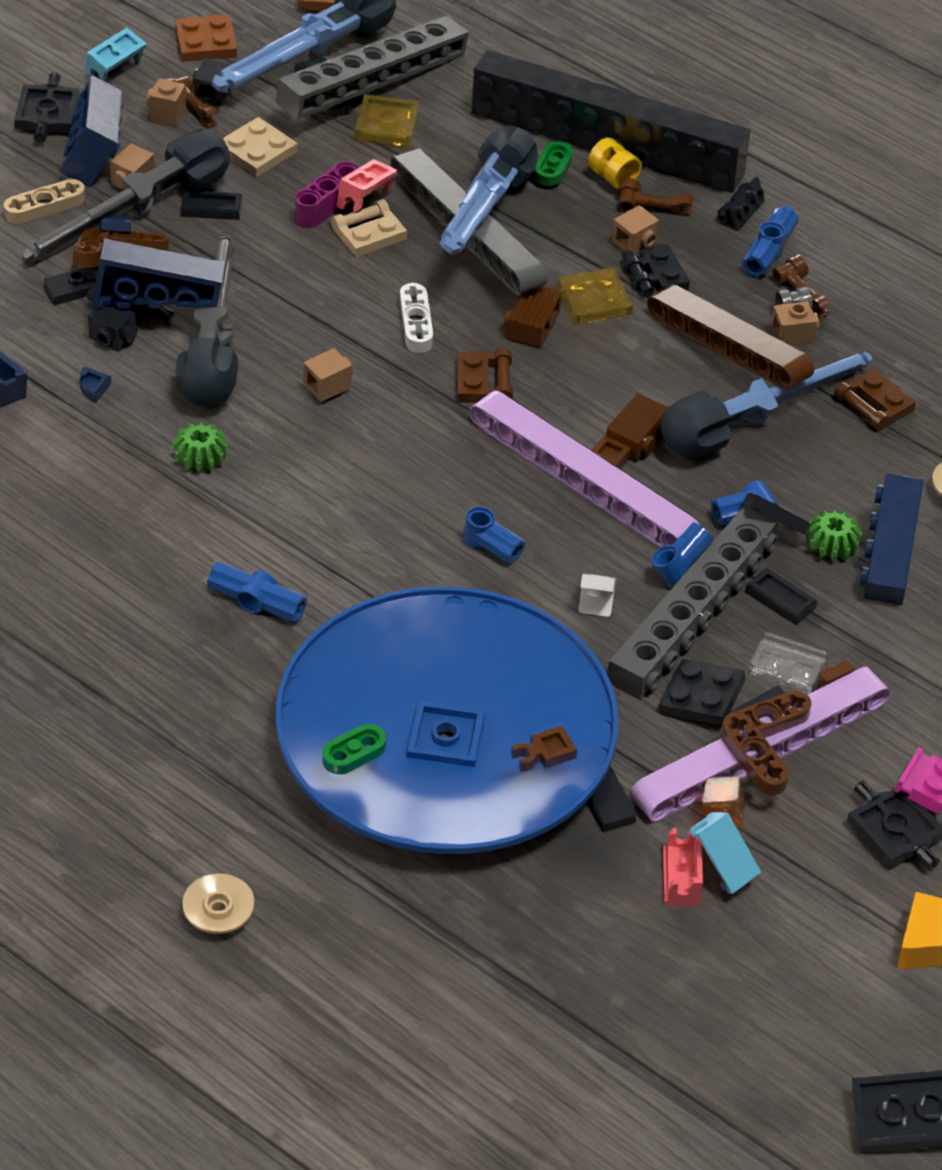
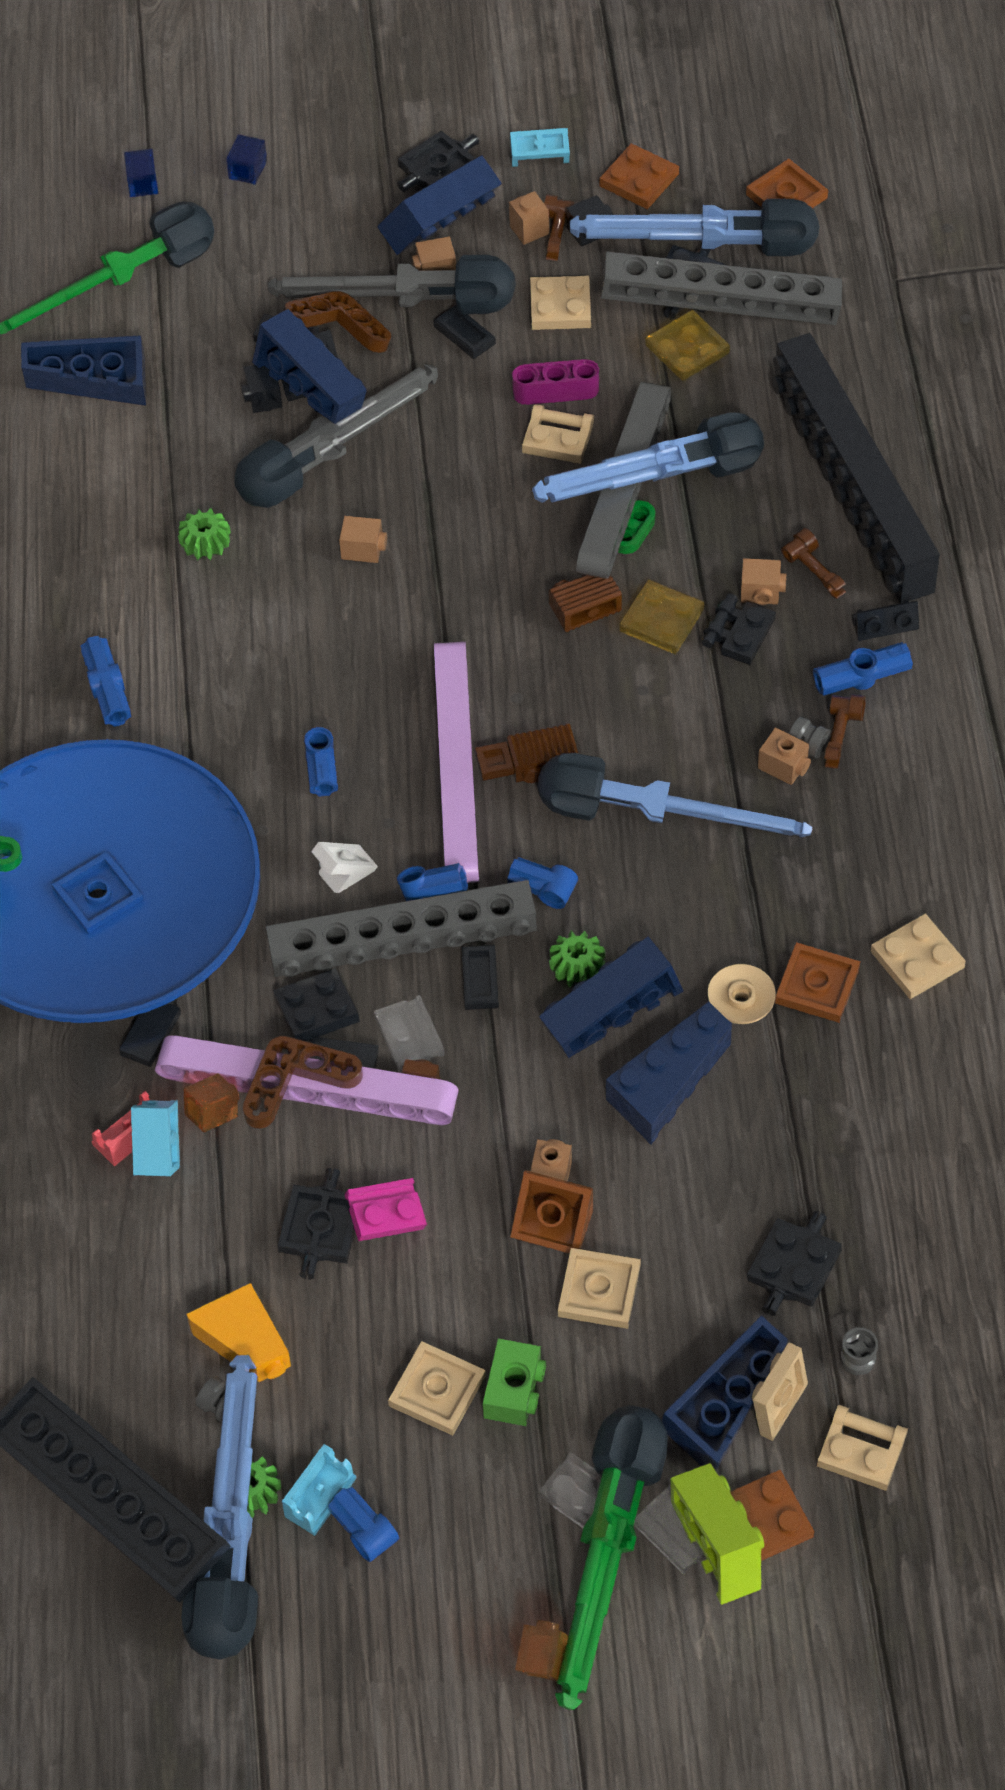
camera: 50 degrees right, 10 degrees up
(19, 208) = (324, 249): tan beam -> none
(94, 383) = (200, 428): dark blue tile -> none
(119, 223) = (366, 303): dark blue tile -> none
(363, 182) = (587, 389): coral hinge -> none
(412, 327) = (494, 550): white beam -> none
(473, 374) = (481, 619): reddish brown plate -> none
(548, 747) = (116, 959): reddish brown plate -> none
(553, 163) = (769, 476): green plate -> none
(613, 162) = (818, 507): yellow wheel -> none
(730, 337) = (700, 730): reddish brown beam -> none
(776, 512) = (543, 905): black tile -> none
(876, 399) = (782, 872): reddish brown plate -> none

